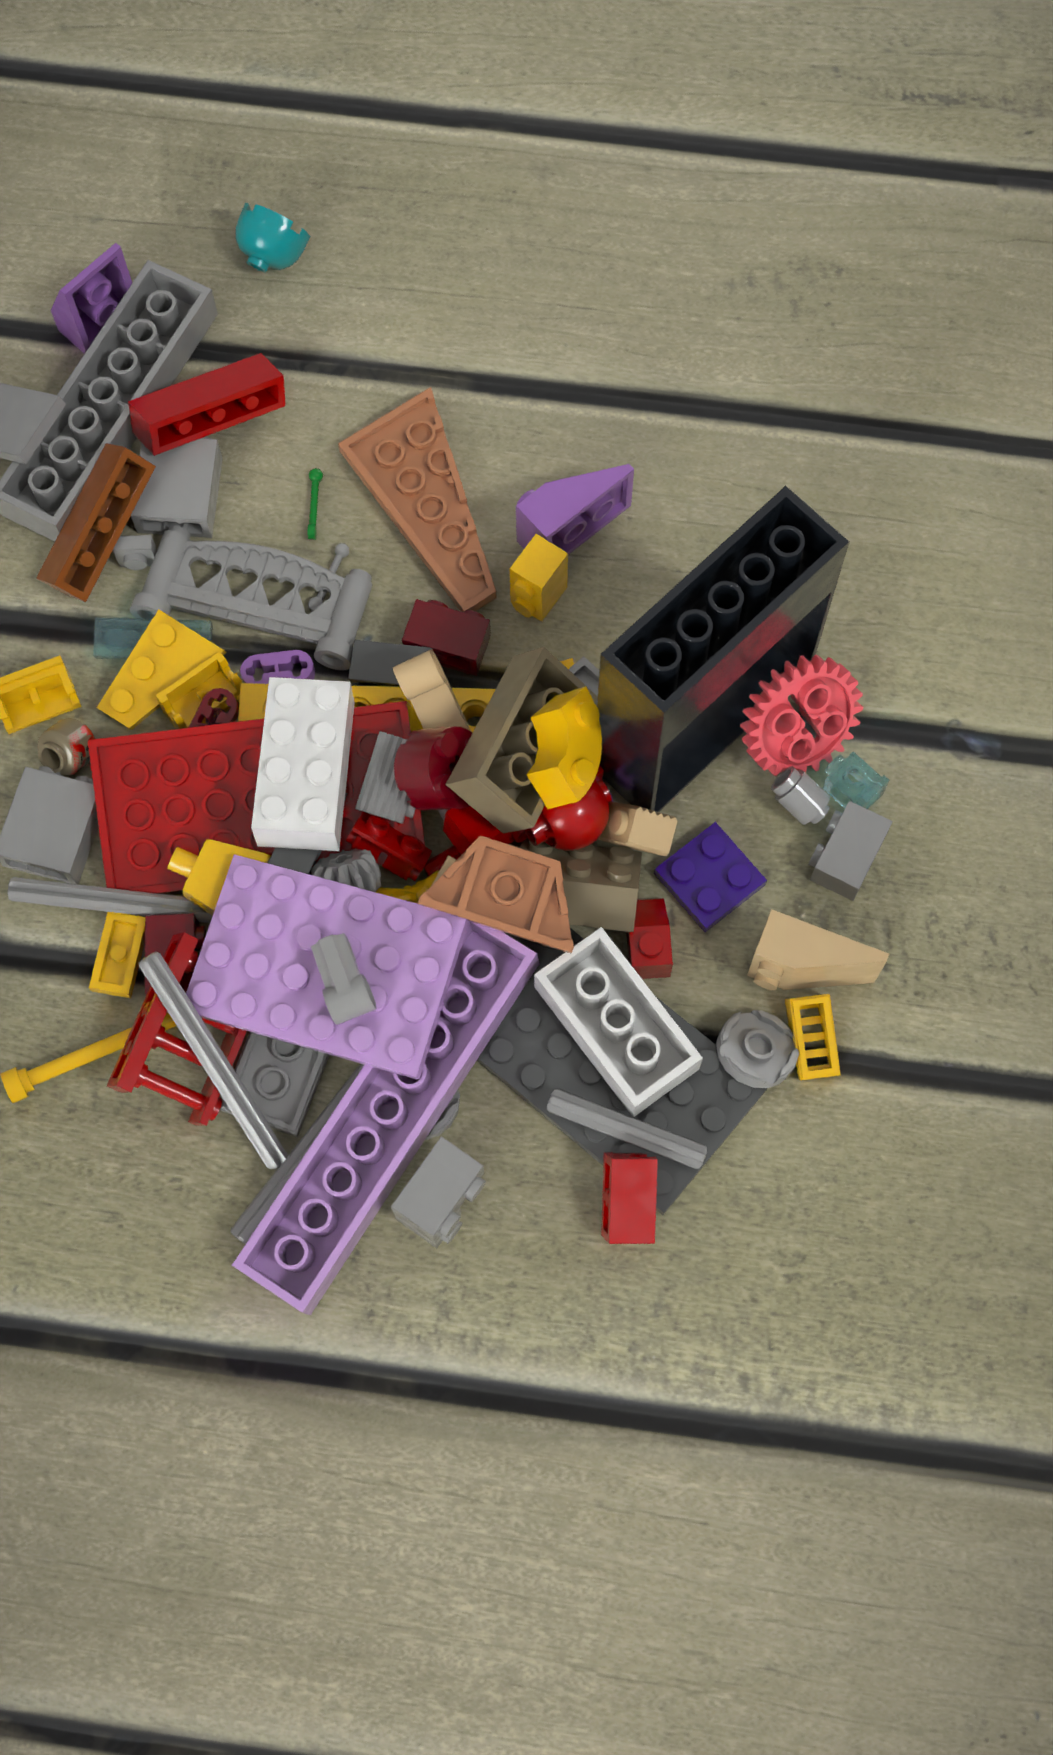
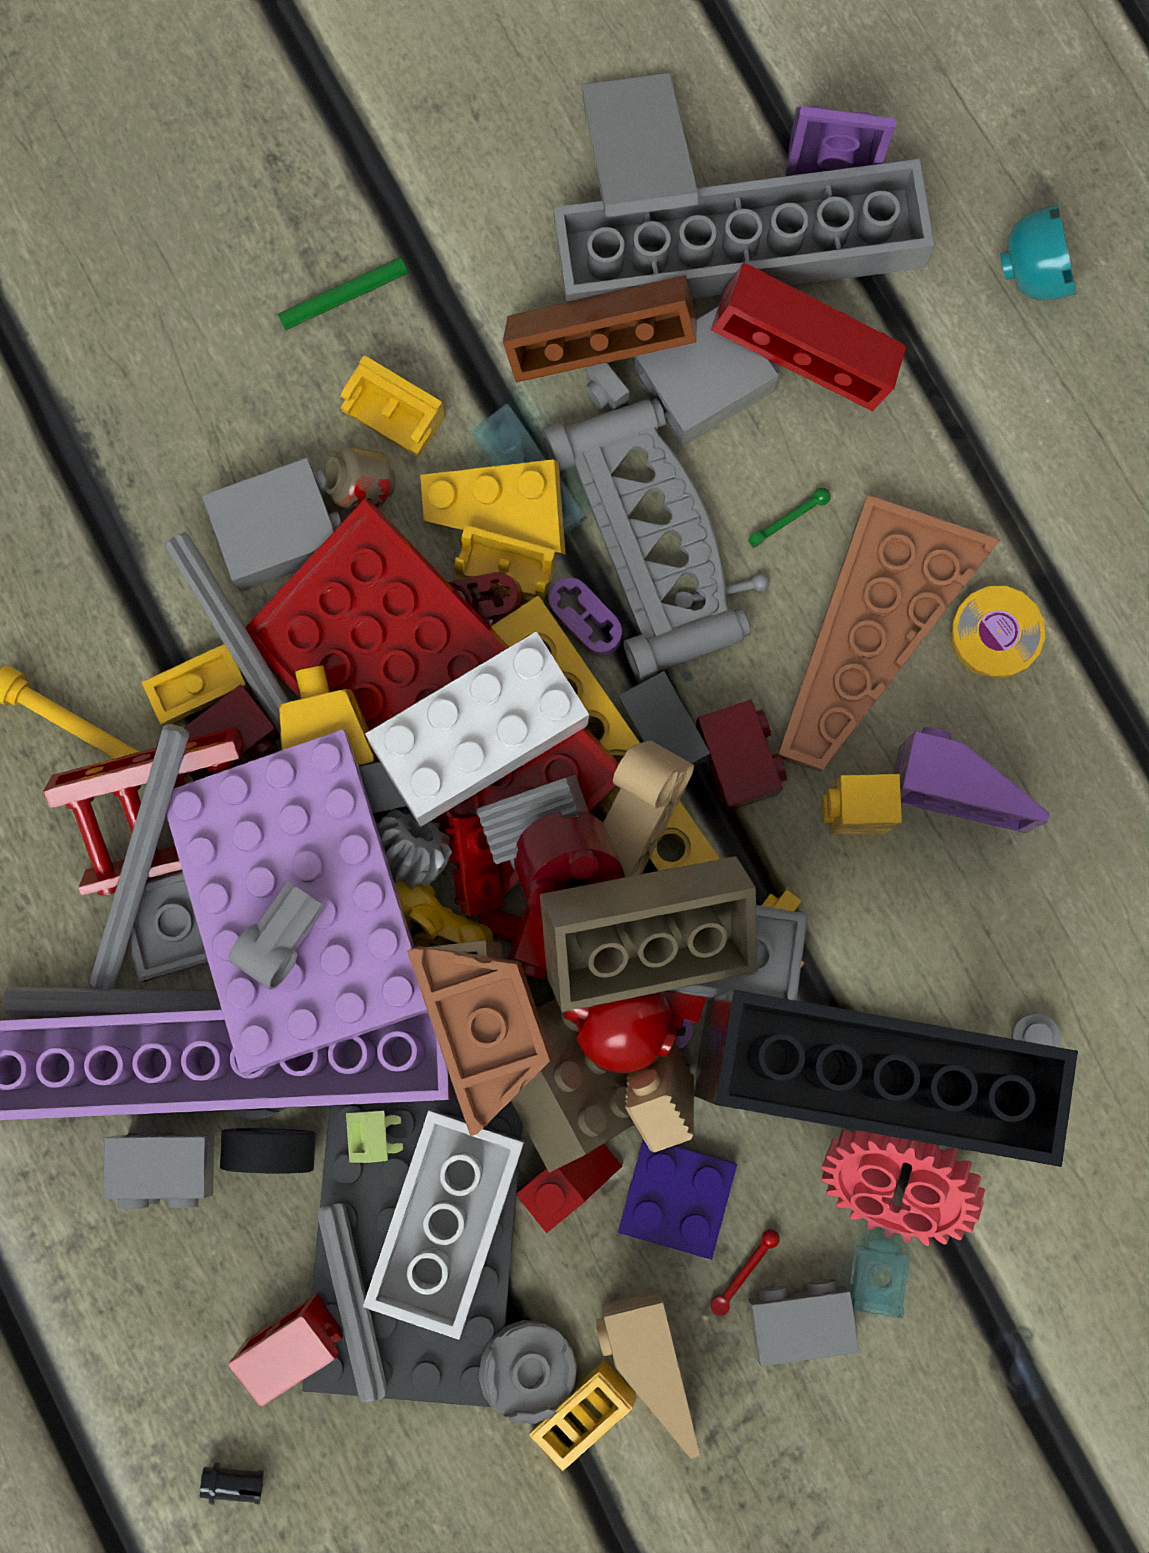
camera: 55 degrees right, 10 degrees up
(481, 1115) = (267, 1150): none -> black tyre
(488, 431) = (997, 632): none -> yellow tile
(521, 1038) = (368, 1136): none -> yellowish green tile
(567, 748) = (663, 989): yellow brick -> none
(694, 1307) = (231, 1484): none -> black pin
(801, 796) = (823, 1234): light grey brick -> none
(801, 897) = (720, 1303): none -> red hinge

